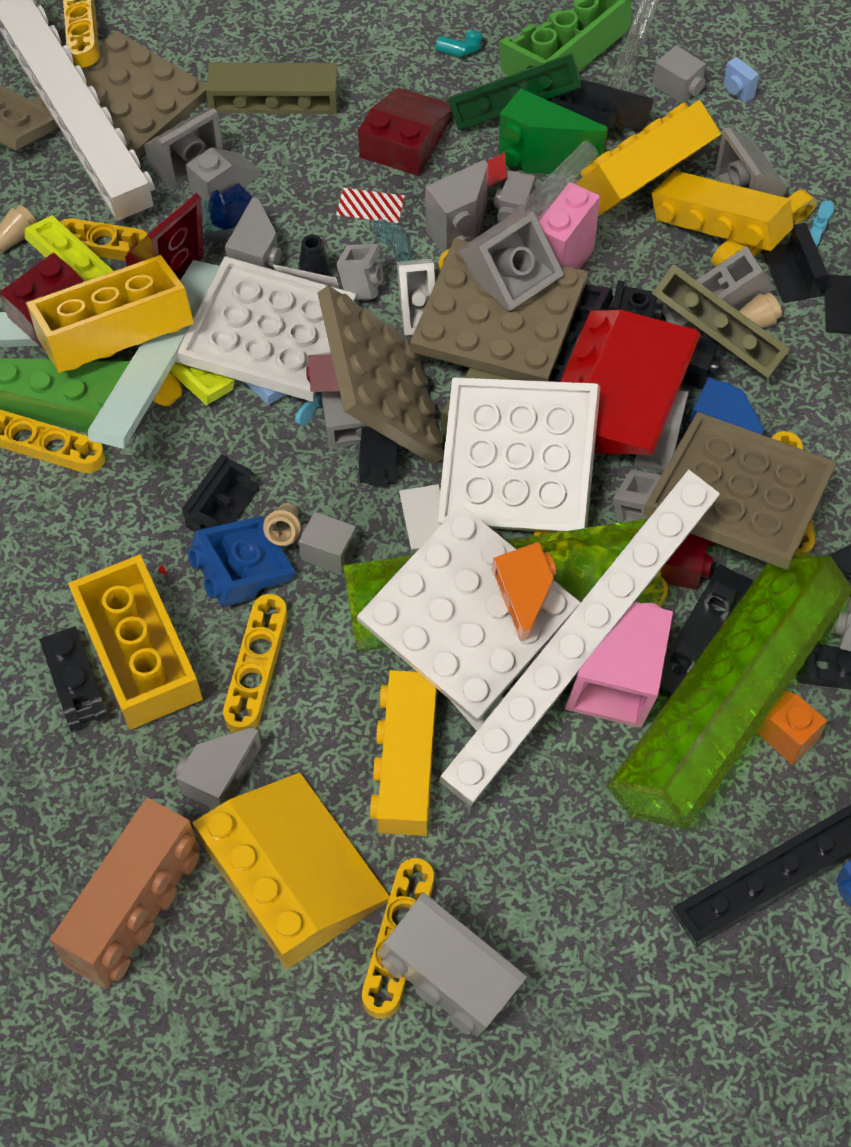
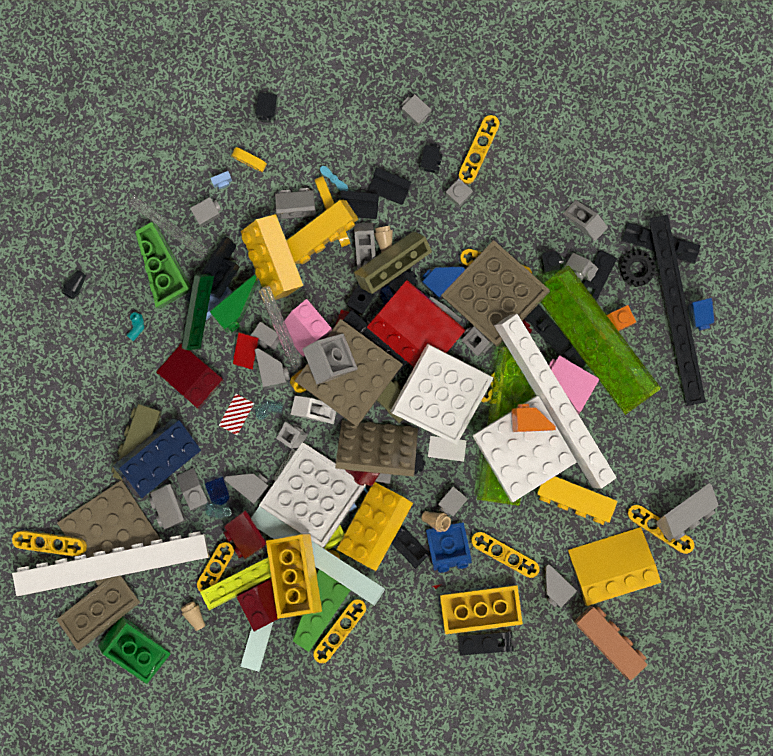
camera: 75 degrees left, 25 degrees up
(240, 424) = (375, 526): none -> yellow brick
(256, 98) = (156, 458): none -> dark blue brick
(314, 256) = (279, 458): black cone -> none
(790, 105) = (248, 159): none -> yellow beam

